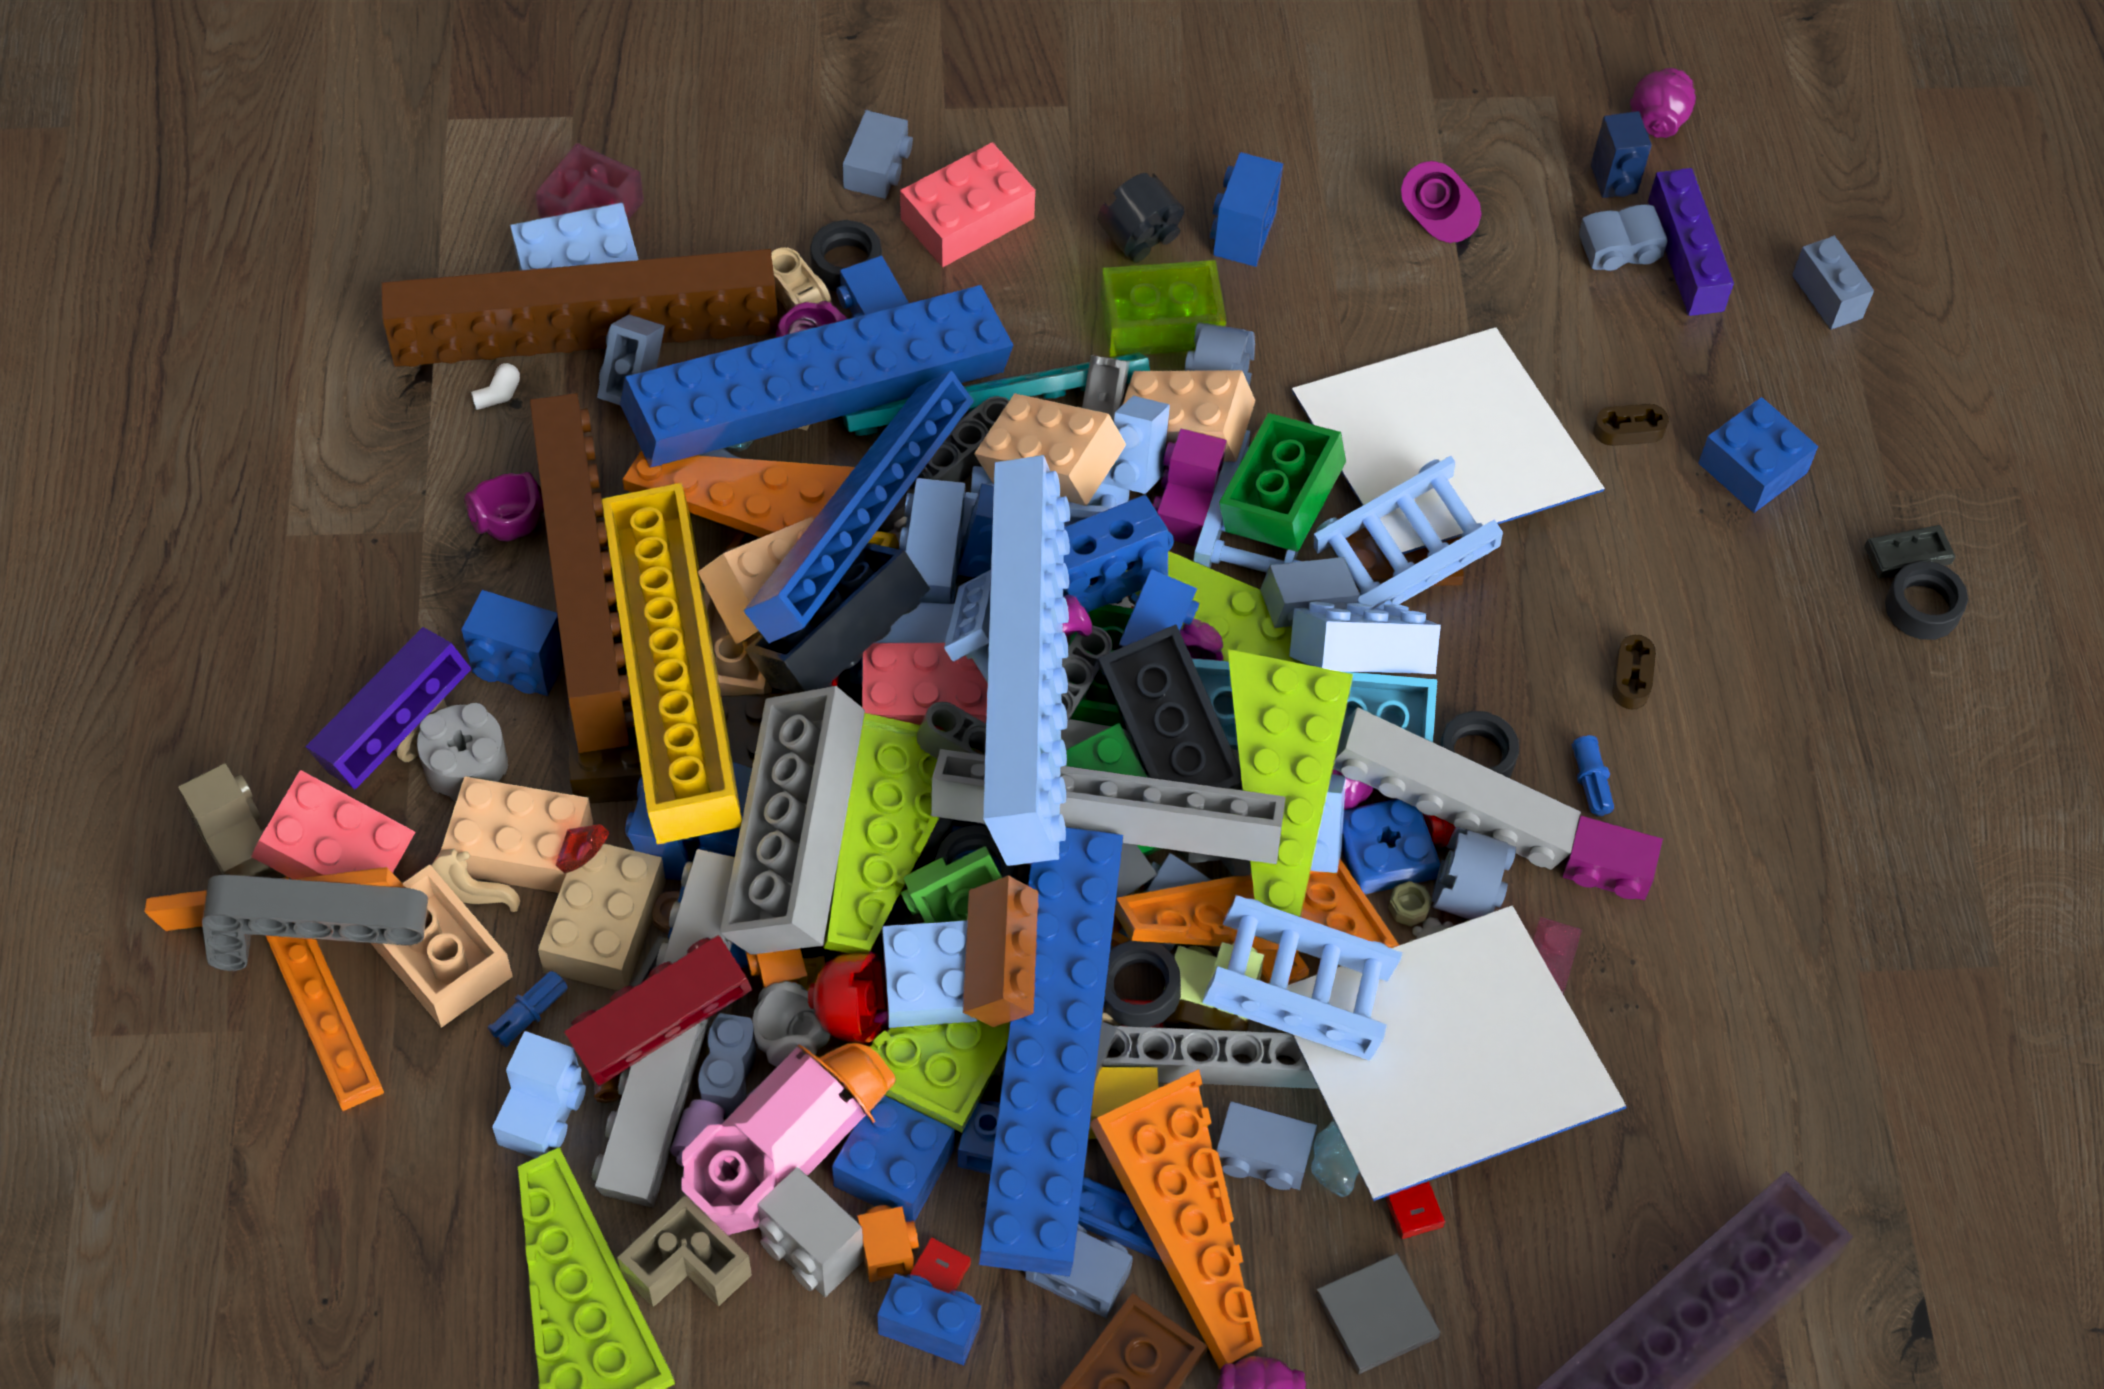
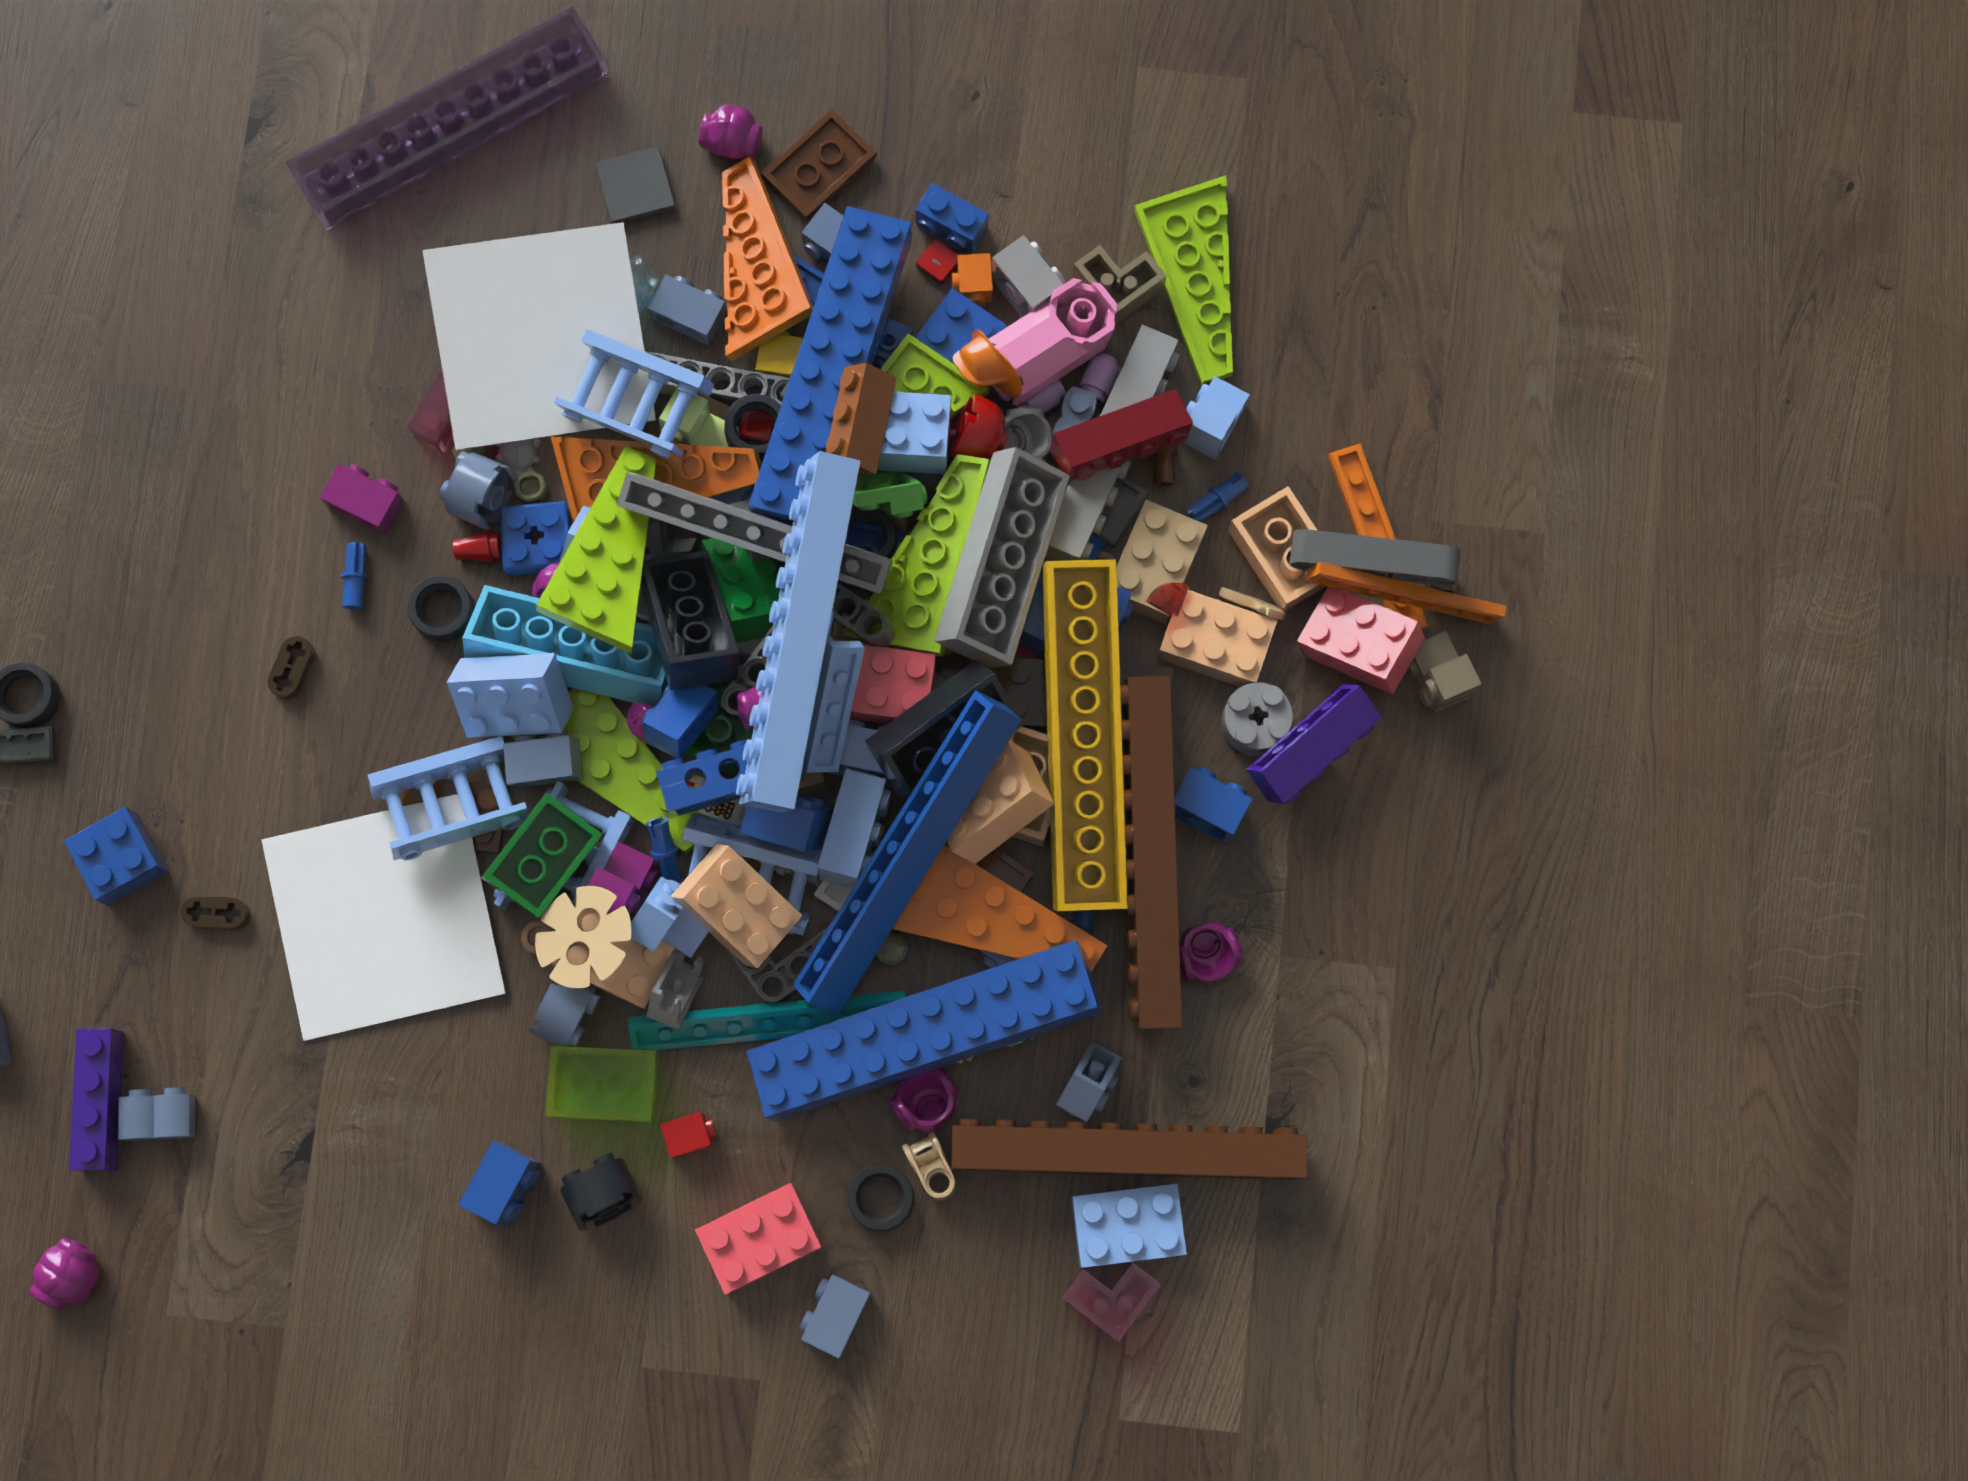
camera: 170 degrees left, 20 degrees up
(501, 388) = (1205, 1092): white arm -> none
(869, 288) = (861, 1130): blue brick -> none
(1062, 283) = (688, 1134): none -> red brick
(1186, 395) = (602, 954): none -> tan piece
(1441, 201) = (315, 1179): magenta piece -> none
(1455, 788) = (467, 549): light grey brick -> none
(1620, 154) = (130, 1199): dark blue brick -> none

